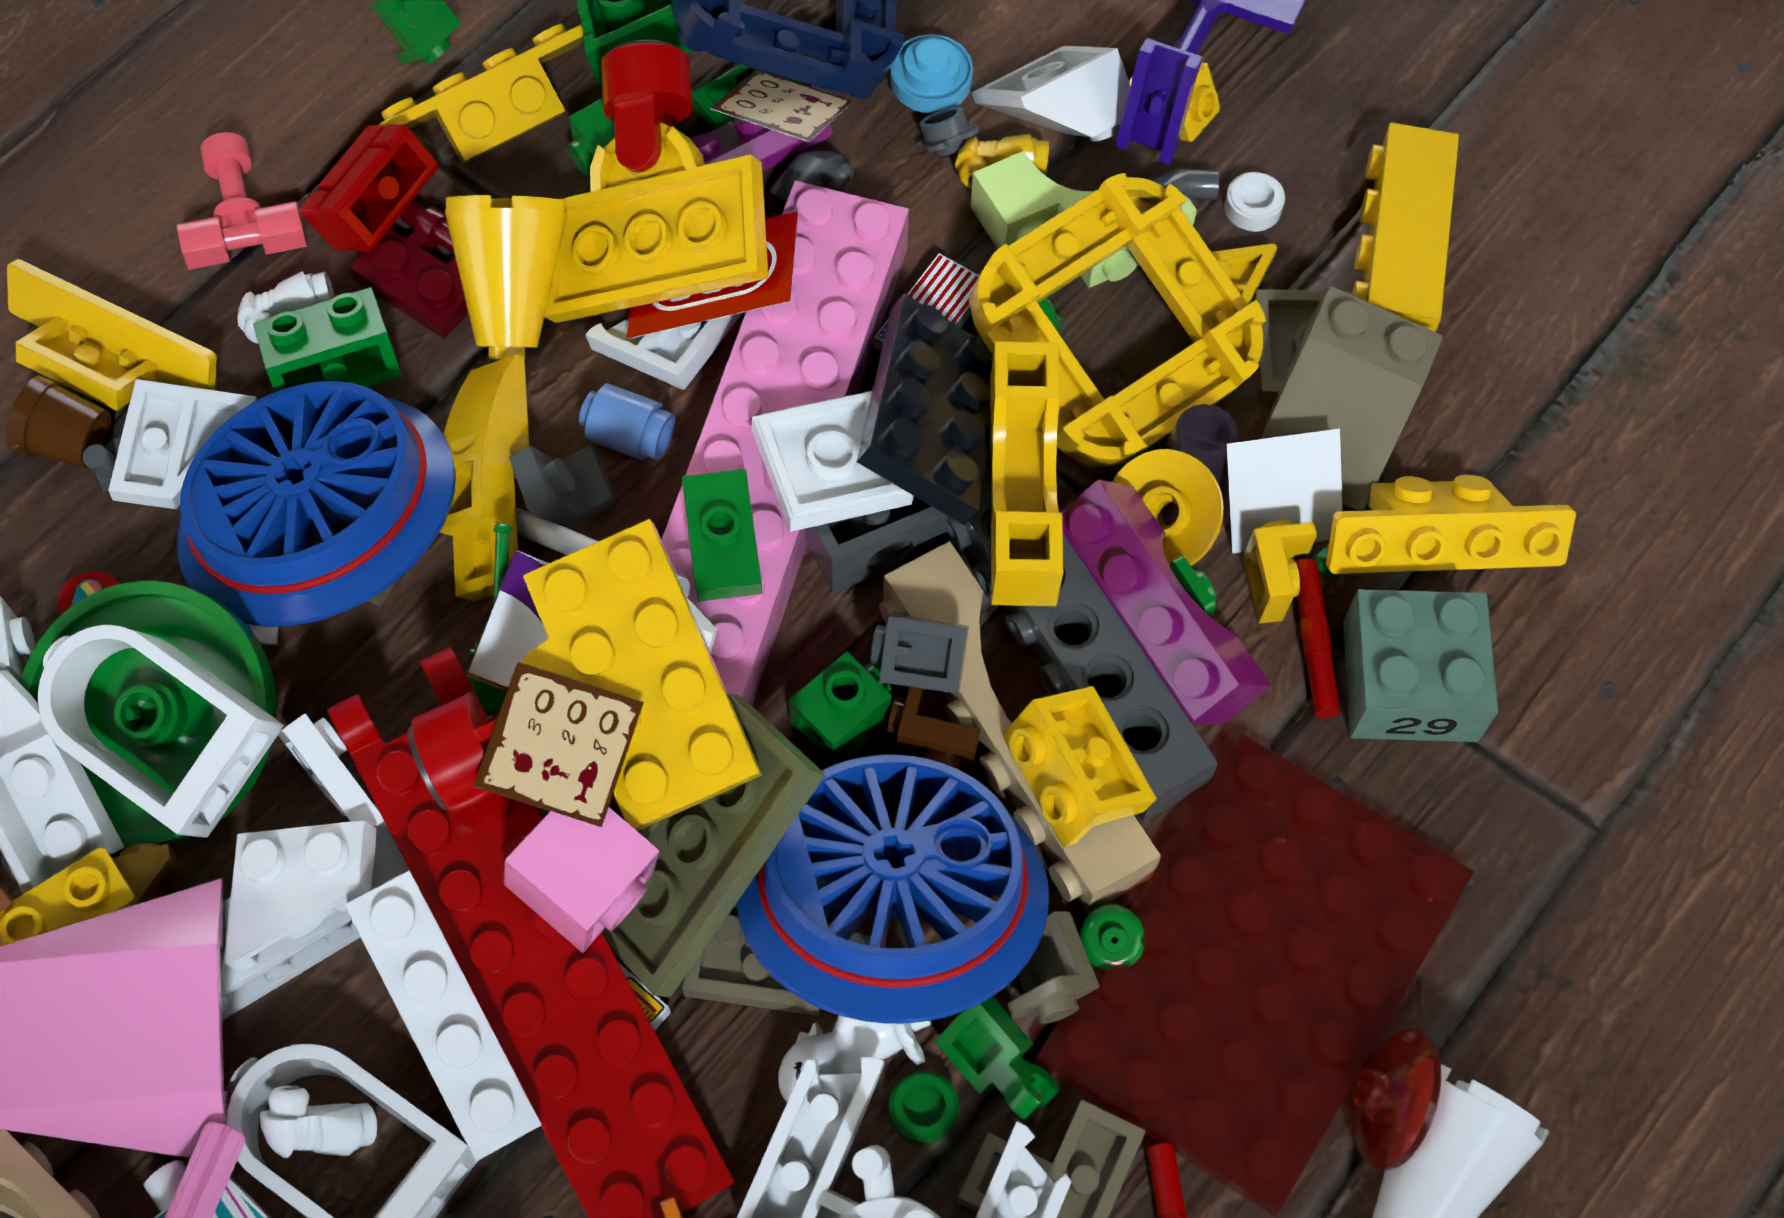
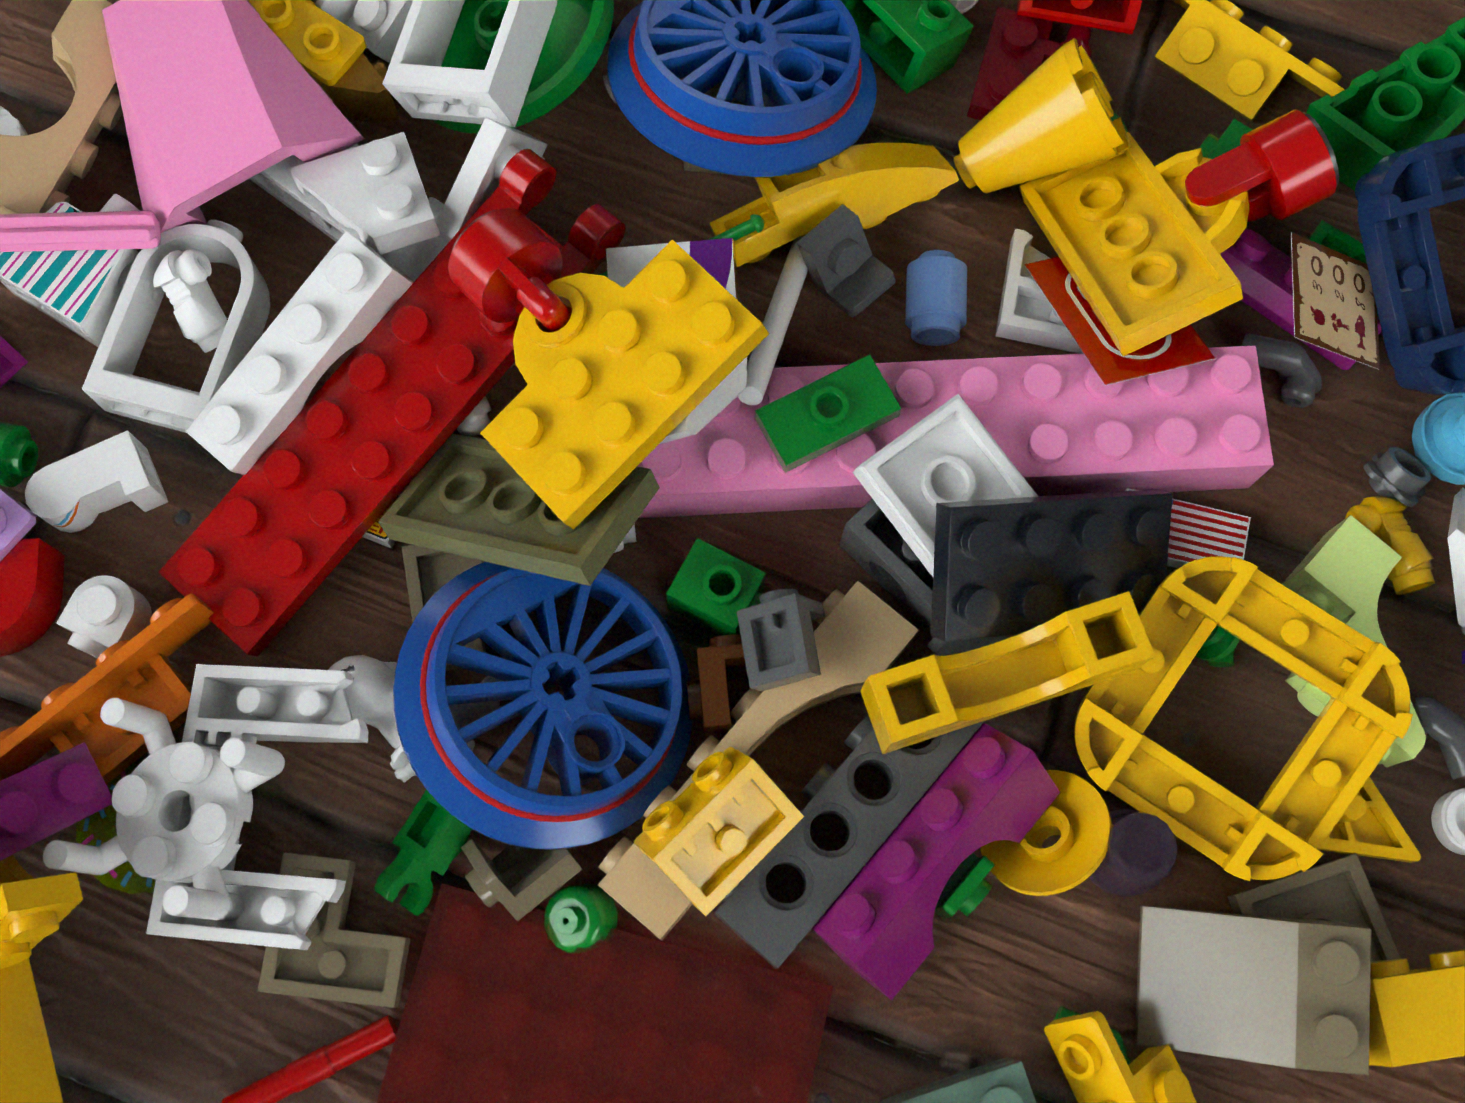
camera: 70 degrees right, 10 degrees up
(559, 744) = (520, 335): tan sticker -> none
(581, 874) = (438, 406): bright pink head -> none
(923, 1108) = (367, 796): green tile -> none
(1273, 567) = (1018, 968): yellow bracket -> none
(1284, 480) = (1120, 952): white sticker -> none
(1316, 641) = (972, 1033): red piece -> none

